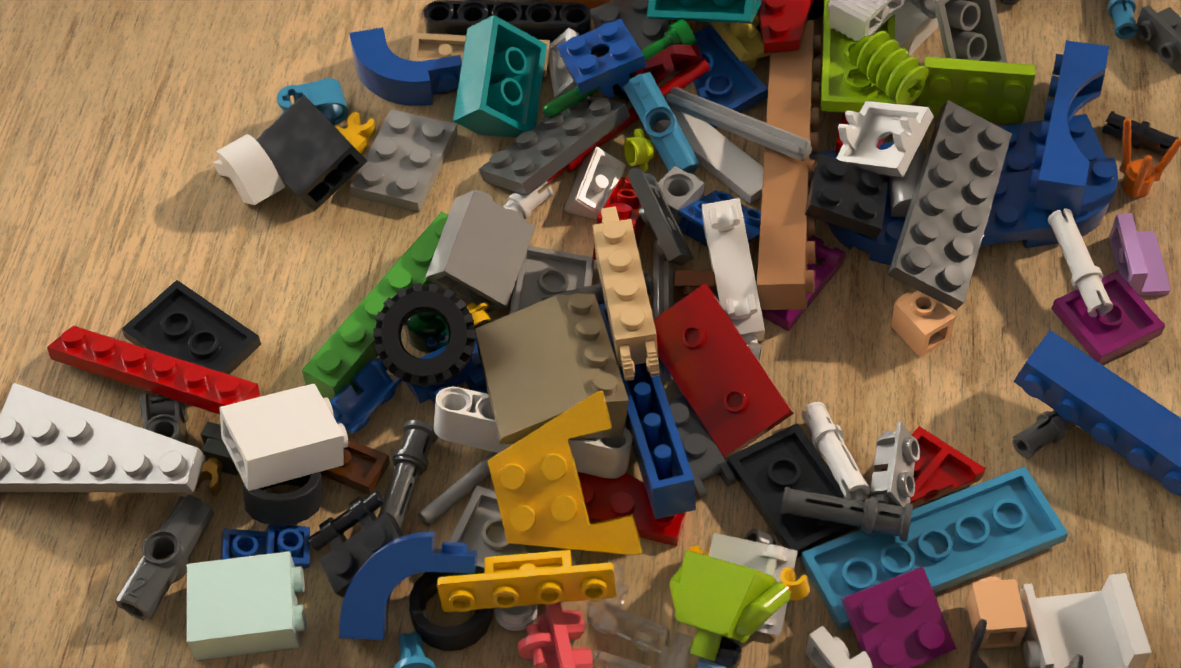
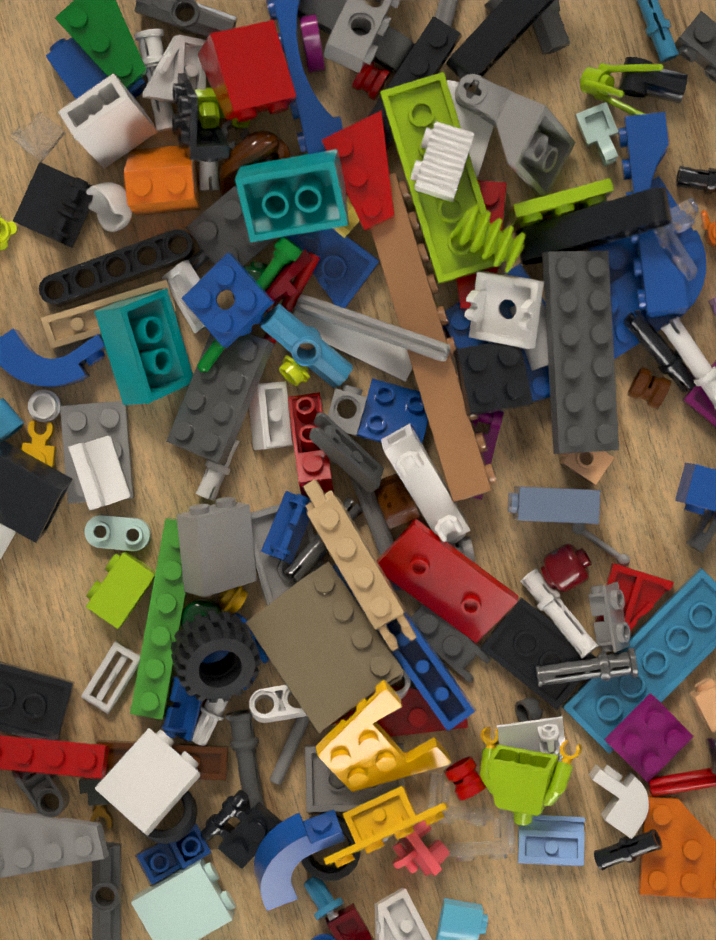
camera: 25 degrees left, 35 degrees up
(291, 369) = (126, 653): none -> white tile
(355, 271) = (121, 589): none -> lime brick
(375, 105) = (44, 405): none -> white plate
(380, 229) = (117, 532): none -> light aqua plate
(390, 419) = (210, 715): none -> white axle
(395, 161) = (99, 472): none -> white panel
(566, 266) = (287, 527): none -> blue hinge
(650, 588) = (465, 778): none -> red wheel
(861, 412) = (566, 567): none -> dark red head
(870, 337) = (554, 504): none -> sand blue brick
(889, 391) = (622, 559): none -> light grey hinge
(1017, 280) = (649, 388): none -> reddish brown wheel
(1025, 100) = (596, 225): none -> black beam
(1038, 54) = (598, 128): none -> light aqua plate
(1041, 243) = (668, 359): none -> black pin
(1050, 24) = (601, 83): none -> lime plant
(1093, 136) = (682, 219): none -> clear bracket
(1094, 29) = (658, 84): none -> black piece

